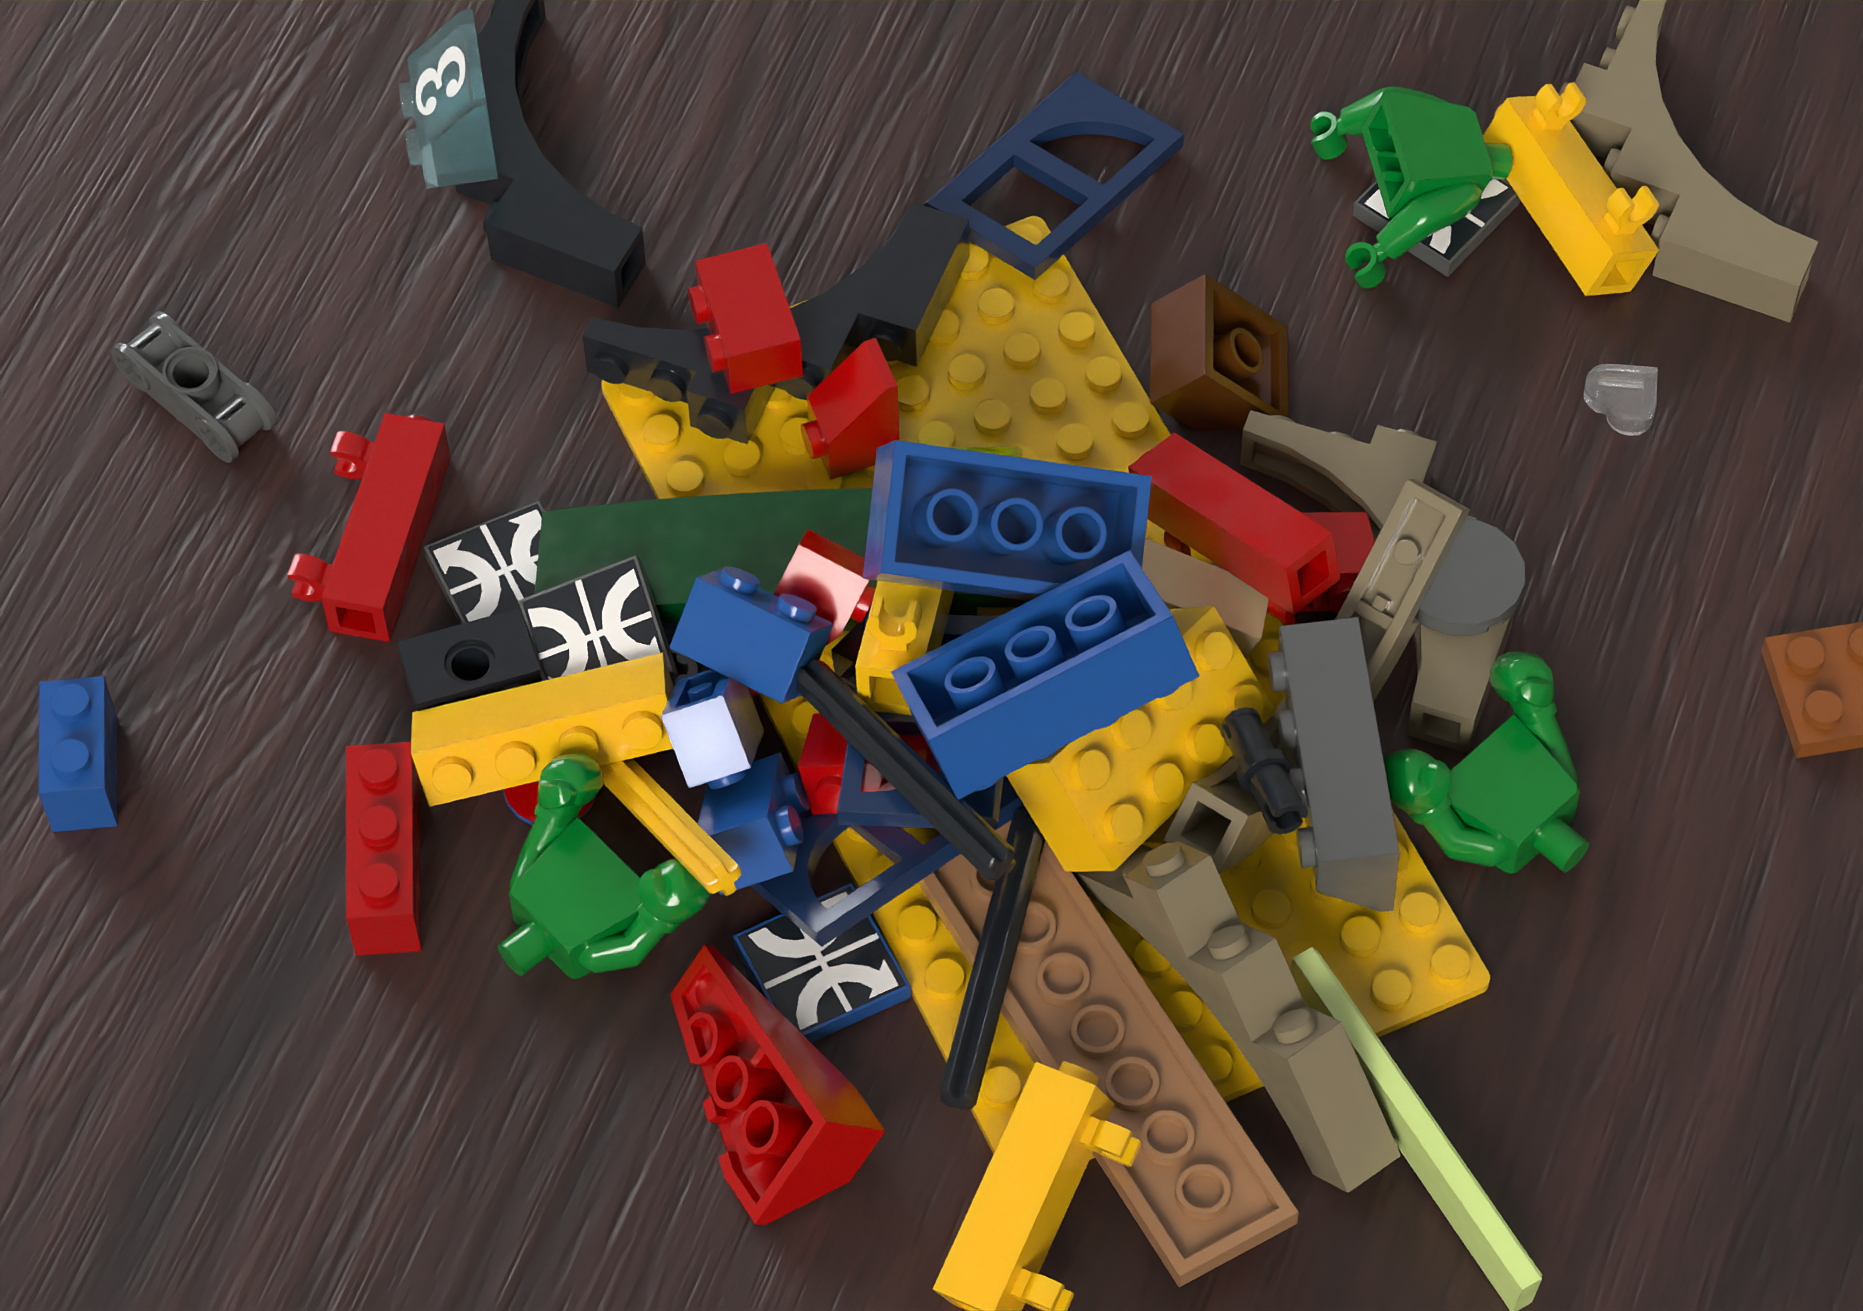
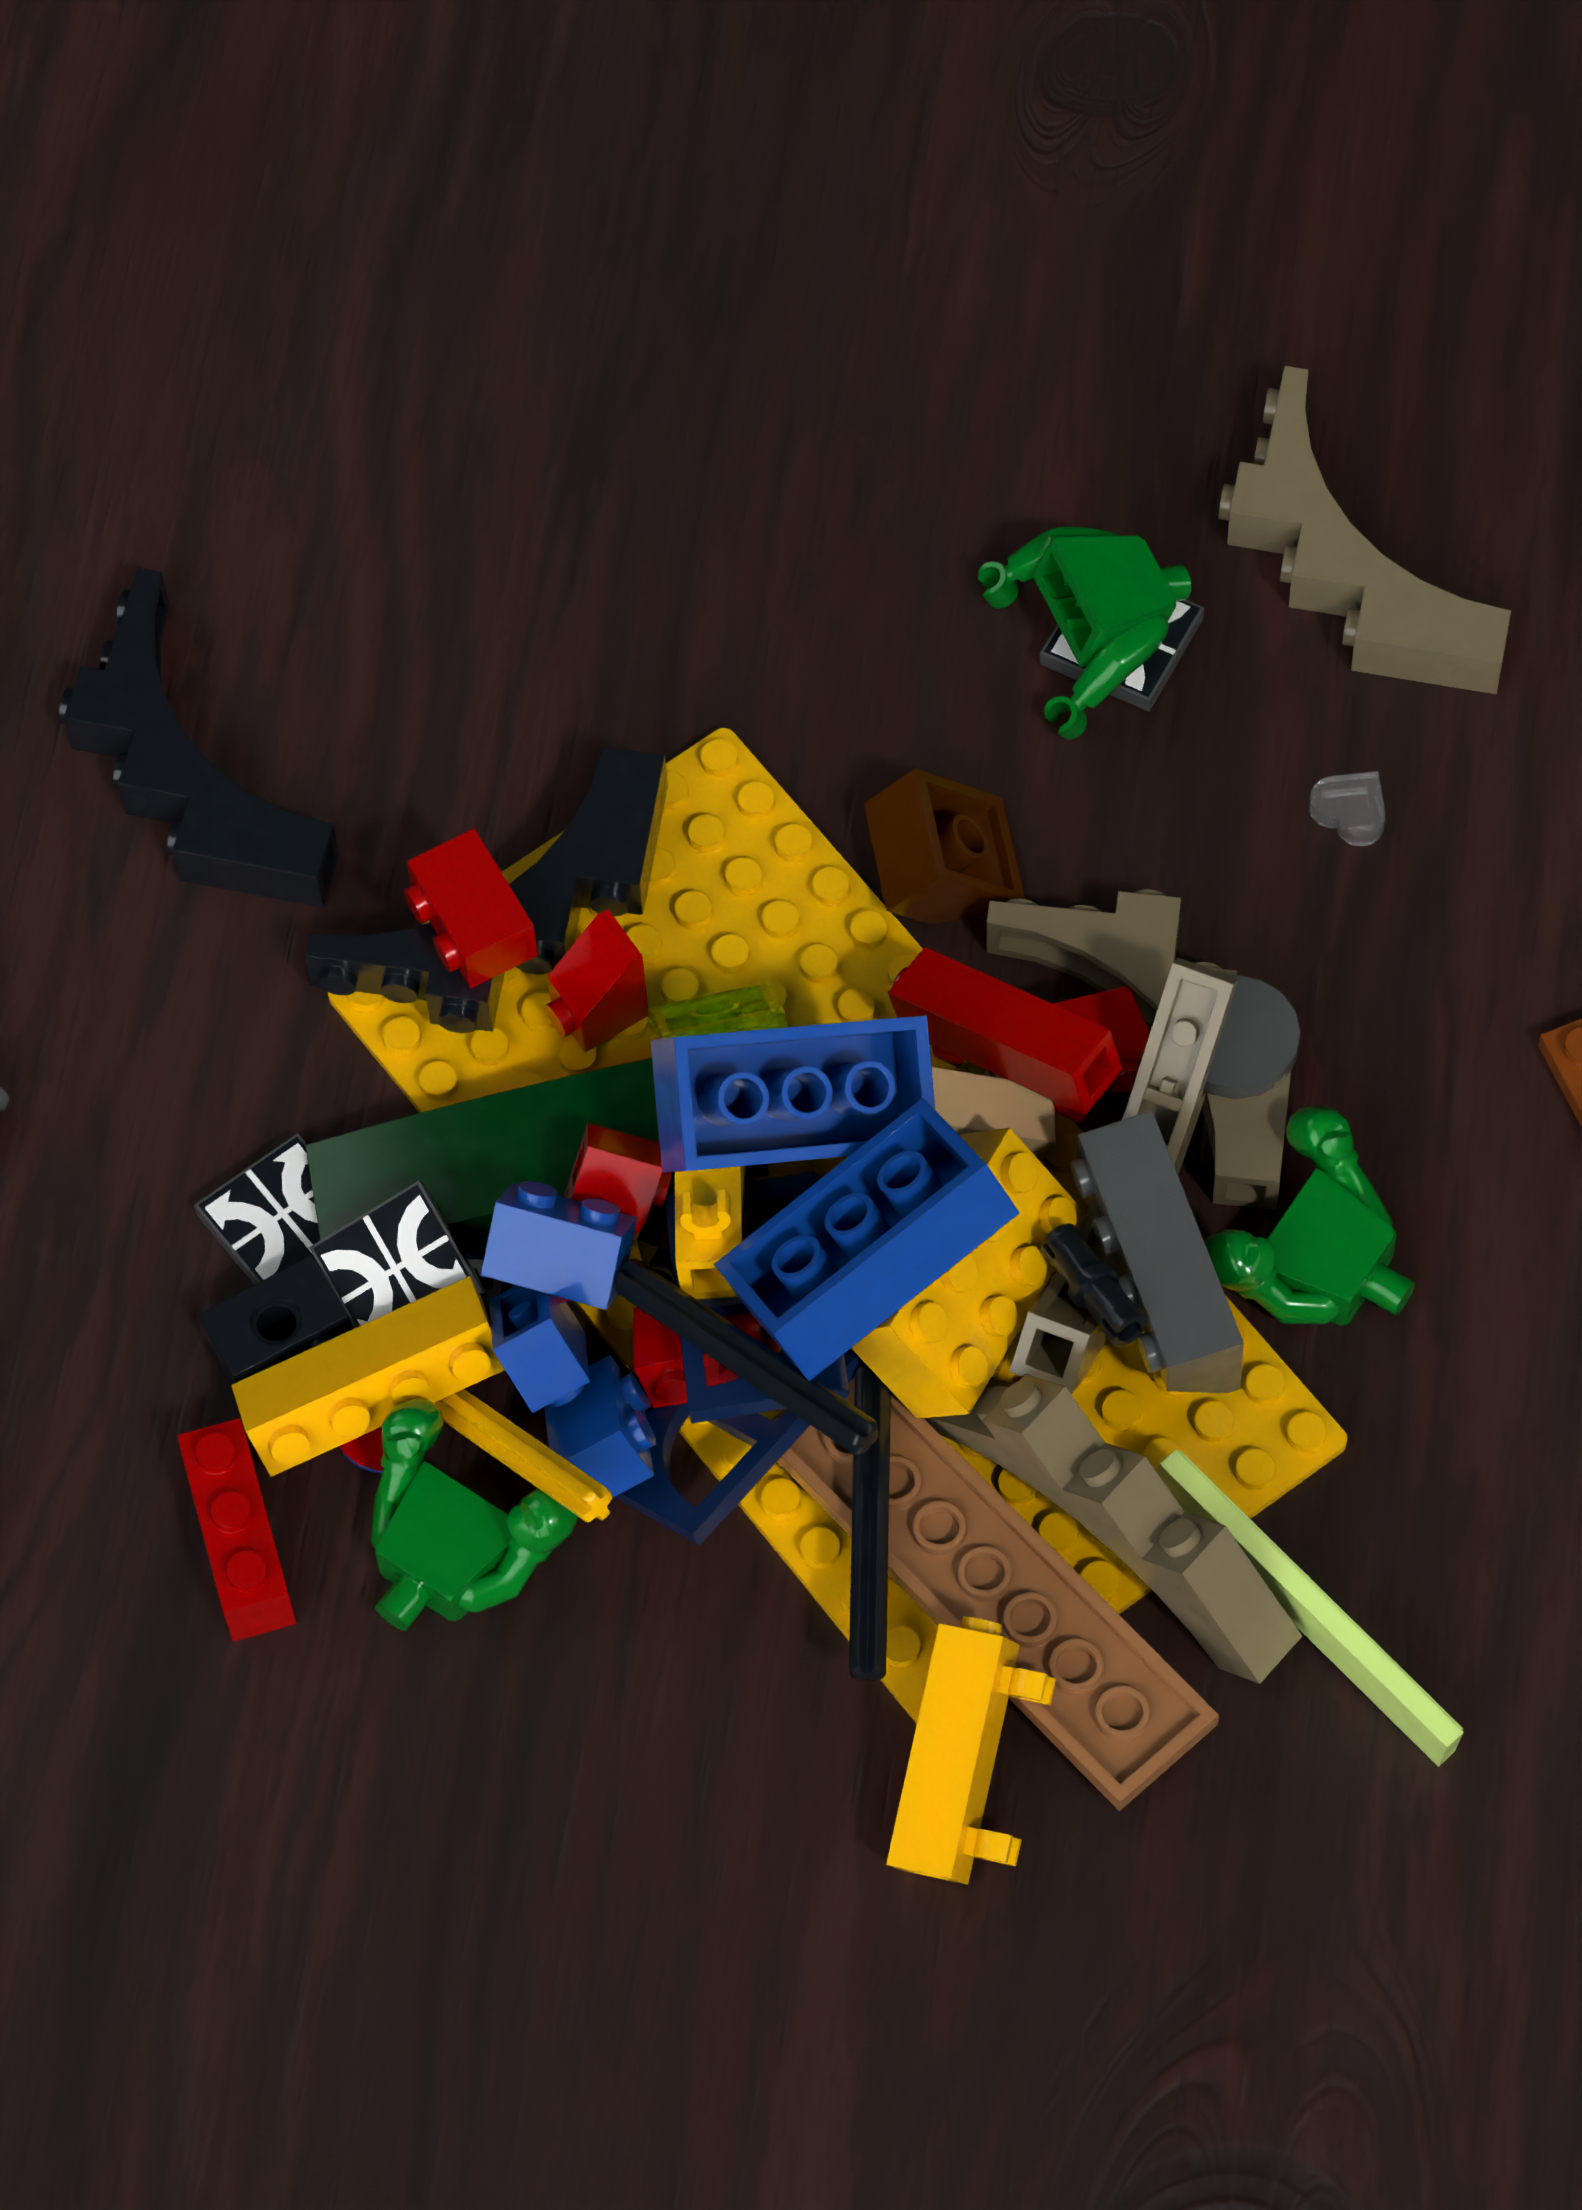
camera: 10 degrees left, 5 degrees up
(384, 529) = (150, 1192): red brick -> none
(449, 107) = (110, 737): clear light blue slope -> none
(780, 1104) = (691, 1709): red wedge -> none
(823, 985) = (696, 1585): tile -> none
(1071, 109) = (731, 605): dark blue window -> none
(1570, 194) = (1255, 604): yellow brick -> none

